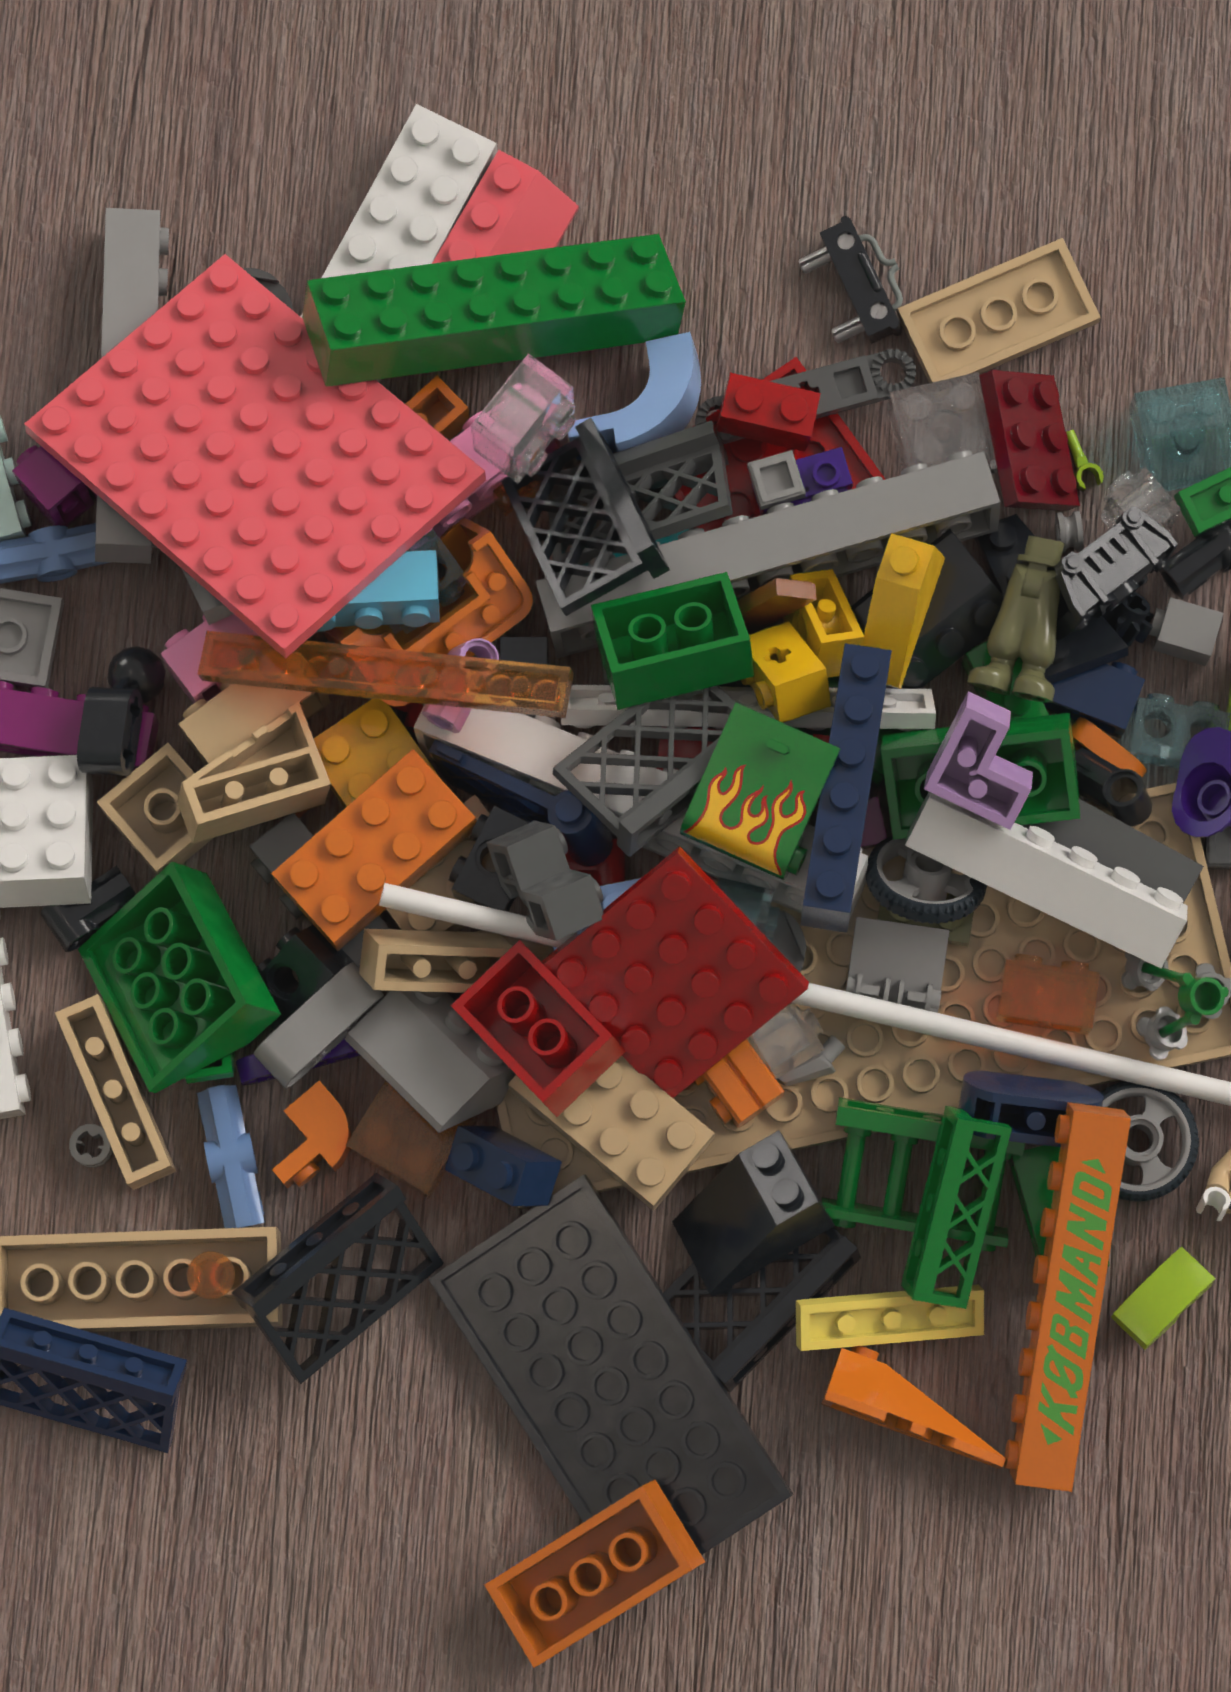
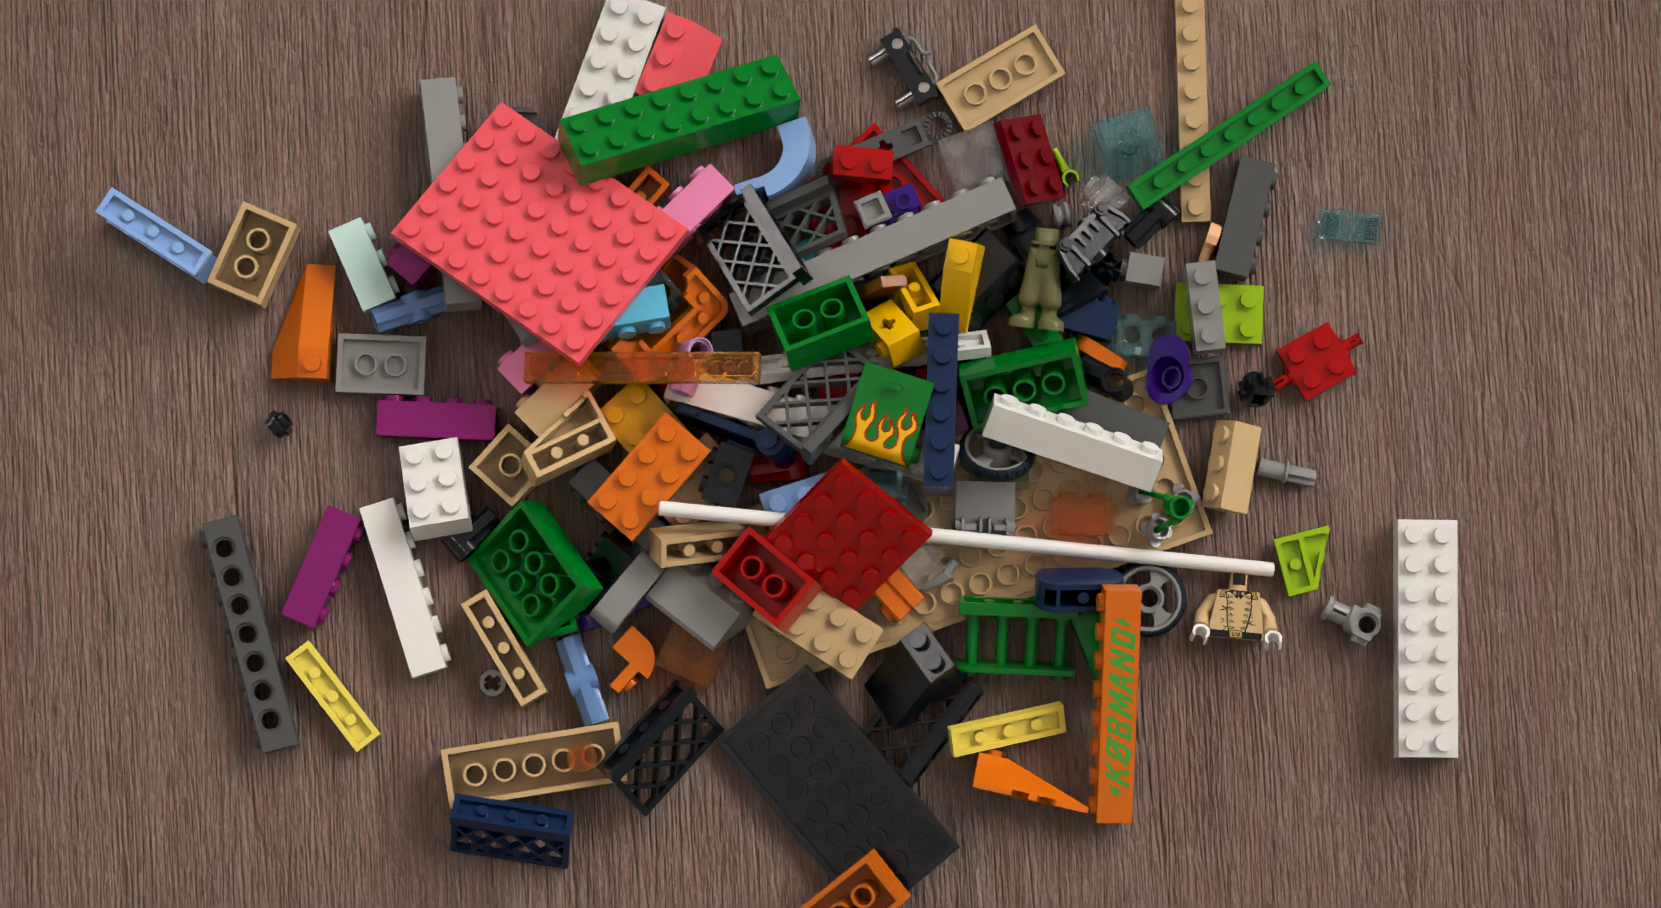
camera: 15 degrees left, 5 degrees up
(115, 714) = (472, 409): black beam -> none
(503, 1165) = (754, 665): dark blue brick -> none
(524, 419) = (709, 192): clear brick -> none
(535, 868) = (752, 479): dark grey brick -> none
(938, 1205) = (1028, 657): green fence -> none
(969, 769) = (1017, 385): lavender brick -> none
(1163, 1298) = (1175, 695): lime slope -> none

